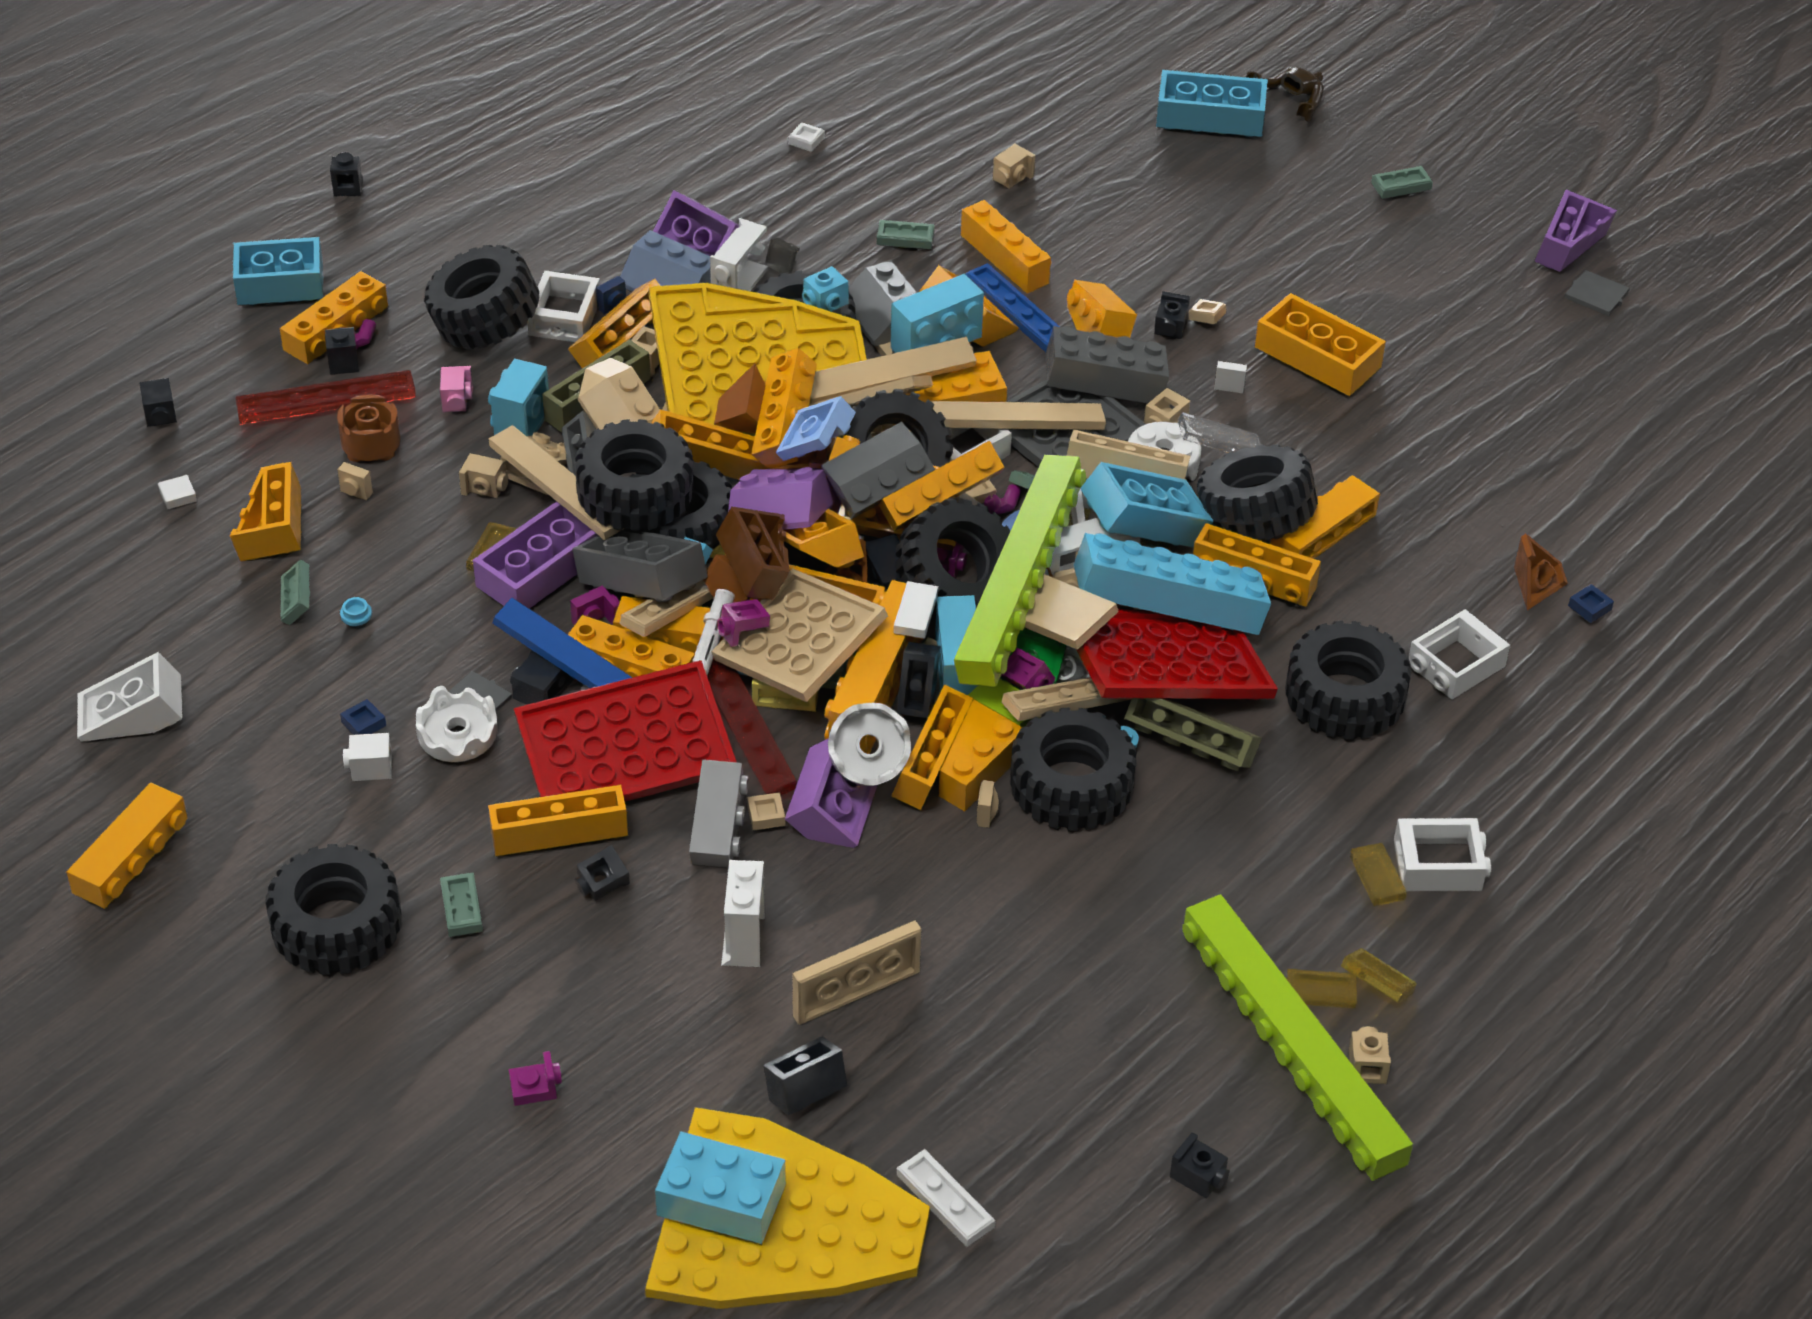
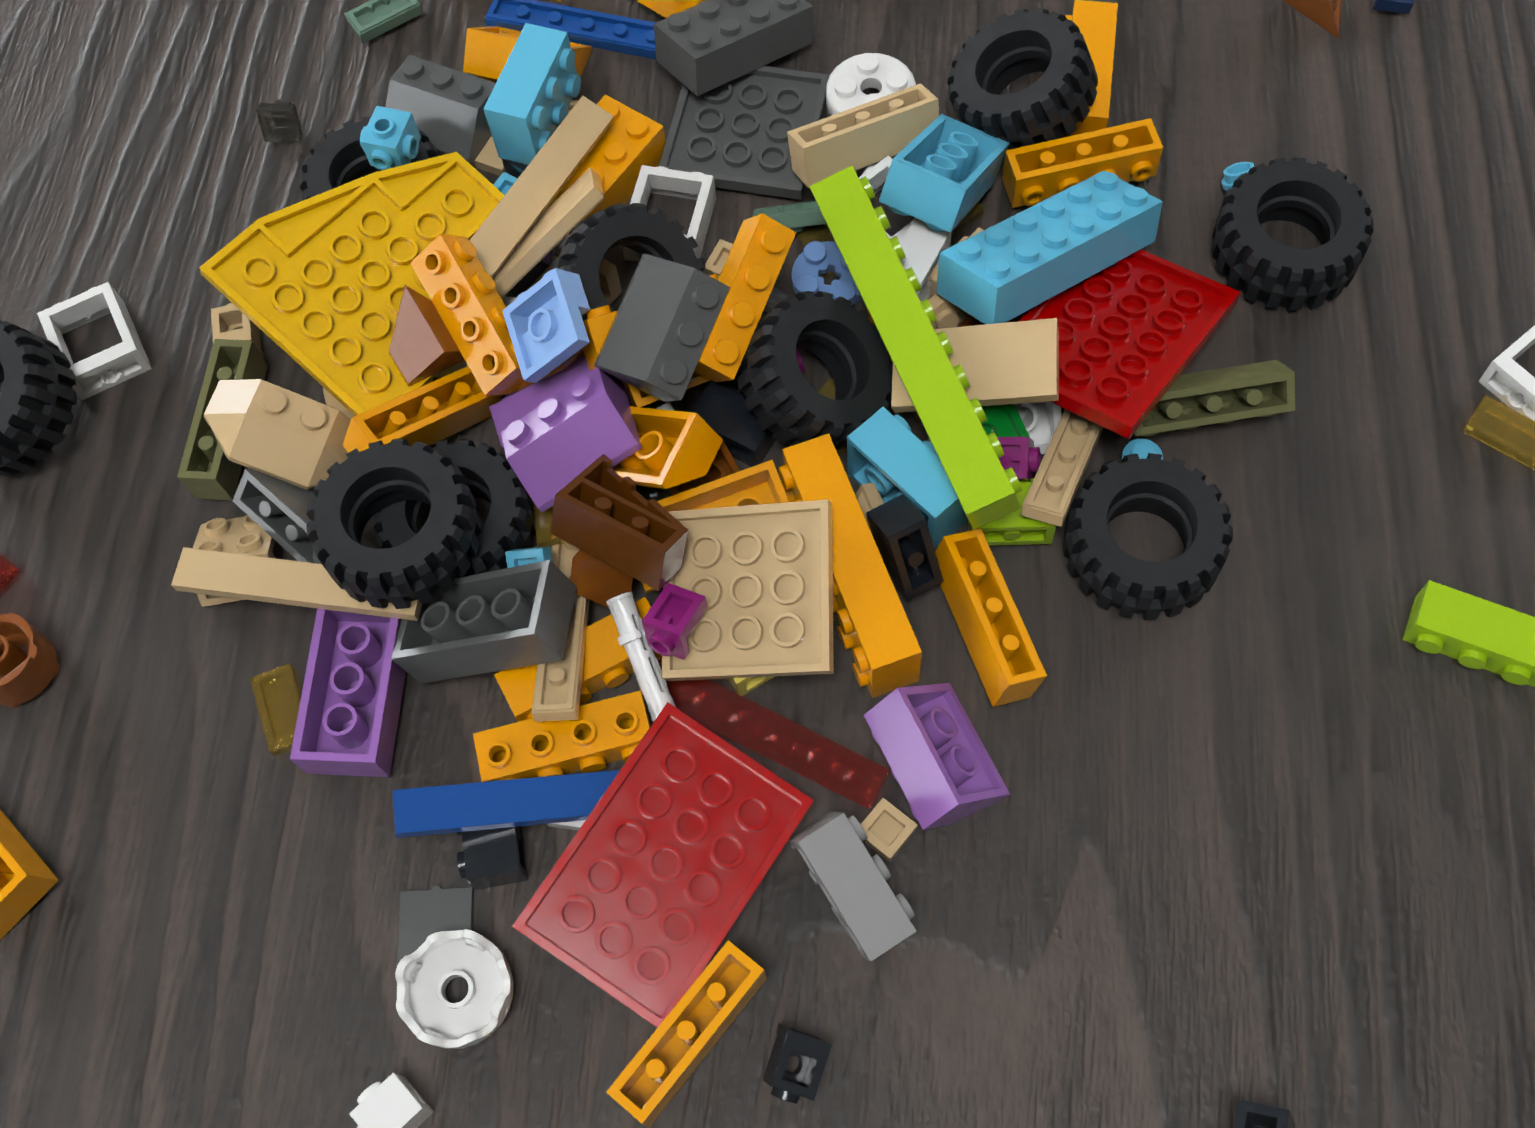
camera: 30 degrees left, 20 degrees up
(295, 592) = (103, 947): sand green plate -> none
(355, 481) = (46, 740): tan plate -> none
(355, 611) = (198, 917): medium azure plate -> none
(363, 718) = (336, 1063): dark blue plate -> none
(455, 388) = (60, 530): bright pink brick -> none
(483, 476) = (192, 624): tan brick -> none
(519, 398) = (154, 502): medium azure brick -> none
(594, 604) = (466, 708): magenta bracket -> none
(610, 294) = (135, 290): dark blue plate -> none
(616, 327) = (180, 326): light orange brick -> none
(665, 261) = (174, 220): sand blue slope -> none
(694, 224) = (166, 153): medium lavender slope -> none
(731, 263) = (246, 168): white window -> none
(742, 913) = (1010, 1003): white window -> none
(856, 972) = (1190, 979): tan tile -> none
(892, 737) = (979, 683): white plate -> none
(915, 609) = (847, 471): white tile -> none
(977, 754) = (1039, 581): light orange wedge -> none
(987, 803) = (1095, 642): tan tile -> none
(1021, 415) = (705, 149): tan tile -> none
(1159, 408) = (829, 52): tan brick -> none
(1215, 434) = (909, 41): clear tile -> none
(1465, 629) = (1369, 106): white window -> none

